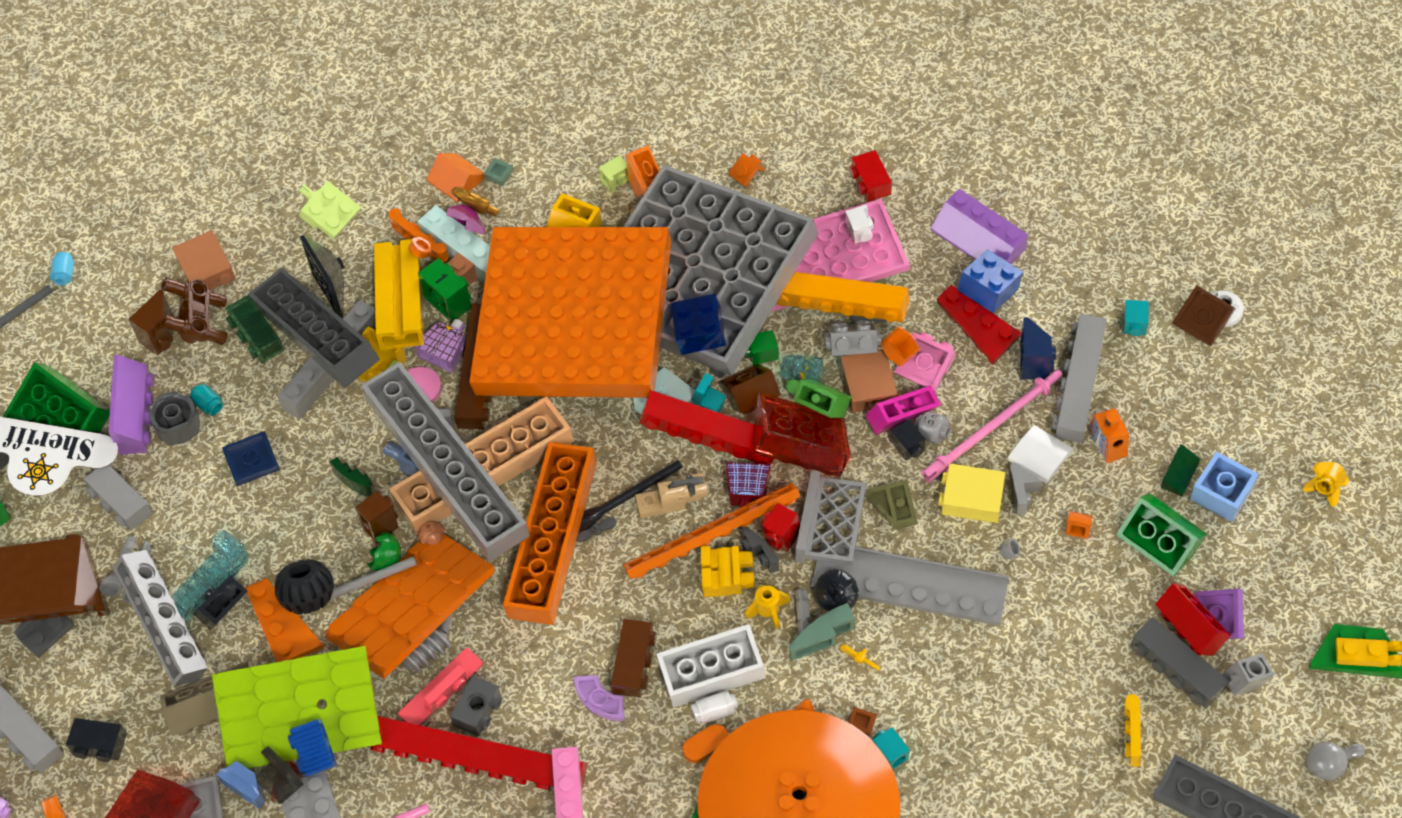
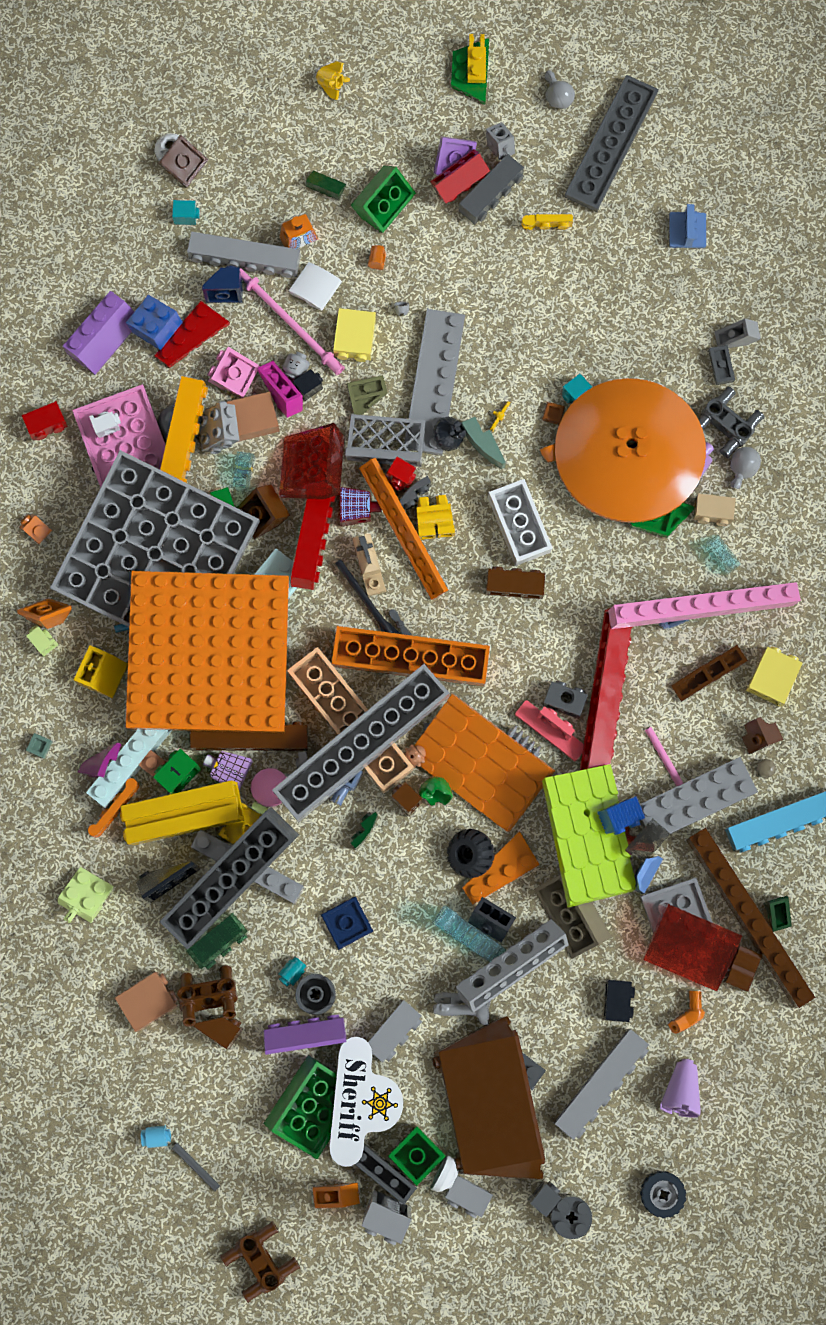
camera: 100 degrees left, 20 degrees up
(373, 577) = (457, 795): light grey bar -> none
(420, 247) = (134, 799): orange tile -> none
(453, 171) = (43, 785): orange slope -> none
(476, 202) = (74, 761): pearl gold piece -> none
(598, 699) = (549, 608): lavender tile -> none
(698, 324) = (226, 540): clear blue brick -> none
(704, 743) = (579, 525): orange tile -> none
(708, 397) = (280, 538): teal slope -> none
(714, 707) = (552, 519): white head -> none
(767, 603) = (461, 489): yellow brick -> none
(802, 609) = (464, 459): light grey axle -> none
(819, 397) = (273, 453): bright green brick -> none
(900, 346) = (226, 388): orange panel -> none
(1022, 485) = (346, 301): light grey slope -> none
(1224, 486) = (343, 150): light blue brick -> none

